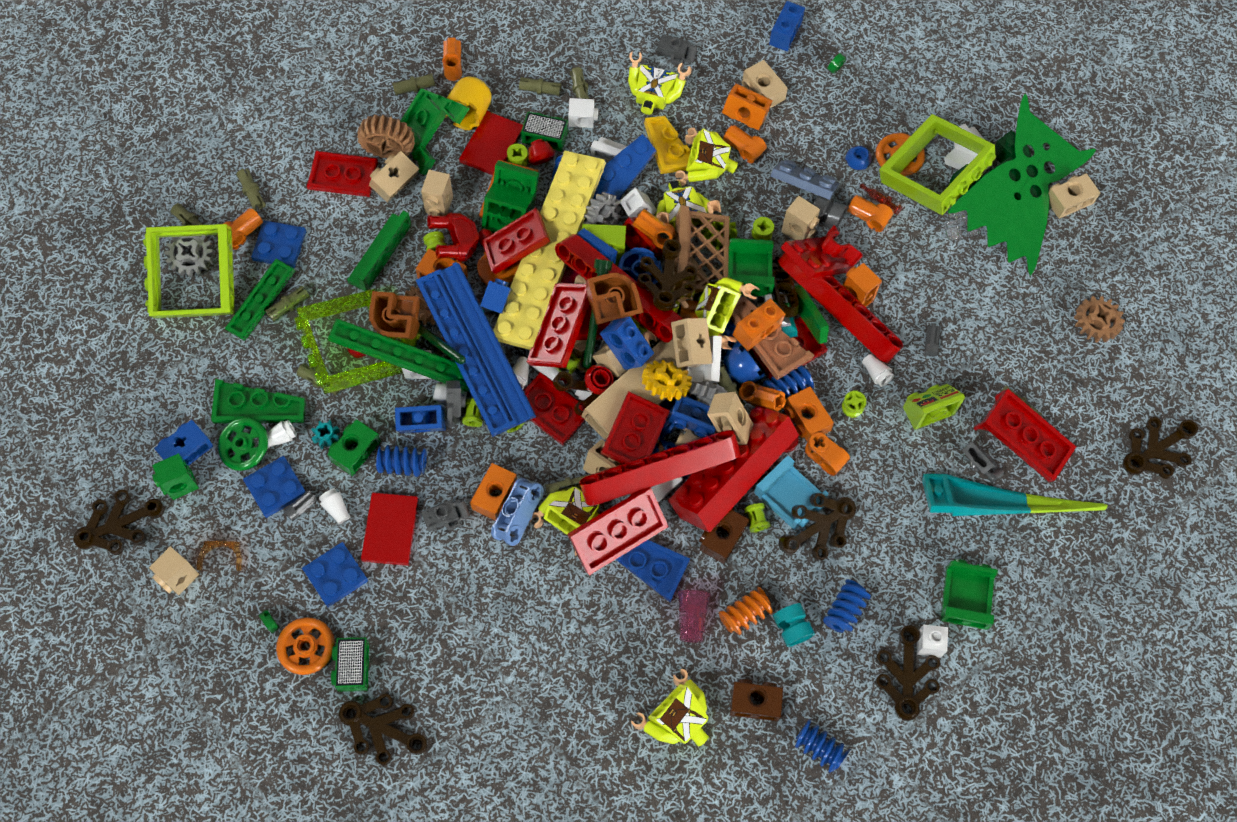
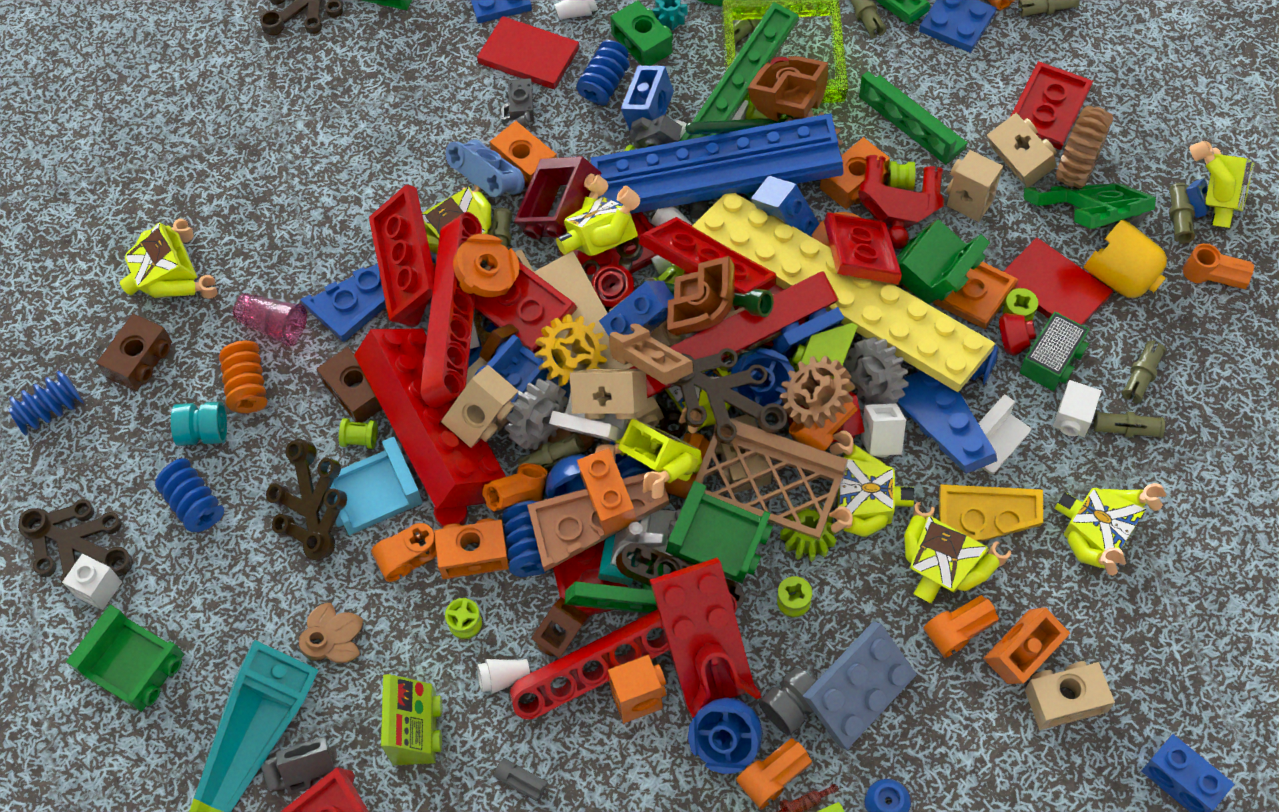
camera: 115 degrees right, 5 degrees down
(390, 56) = (1227, 182): none -> neon yellow torso
(394, 77) = (1196, 196): none -> blue tile
(509, 463) = (542, 193): none -> dark red window
(557, 399) = (601, 221): none -> neon yellow torso
(626, 460) = (481, 281): none -> orange plate
(644, 216) = (817, 392): none -> medium nougat gear
(668, 314) = (649, 355): none -> medium nougat plate
(674, 430) = (496, 338): none -> reddish brown tile
(676, 49) = (1176, 586): dark grey piece -> none
(801, 220) = (782, 644): tan brick -> none
(839, 344) = (566, 616): none -> reddish brown brick
(864, 234) = (725, 735): none -> blue cylinder
(893, 478) = (334, 631): none -> medium nougat plate

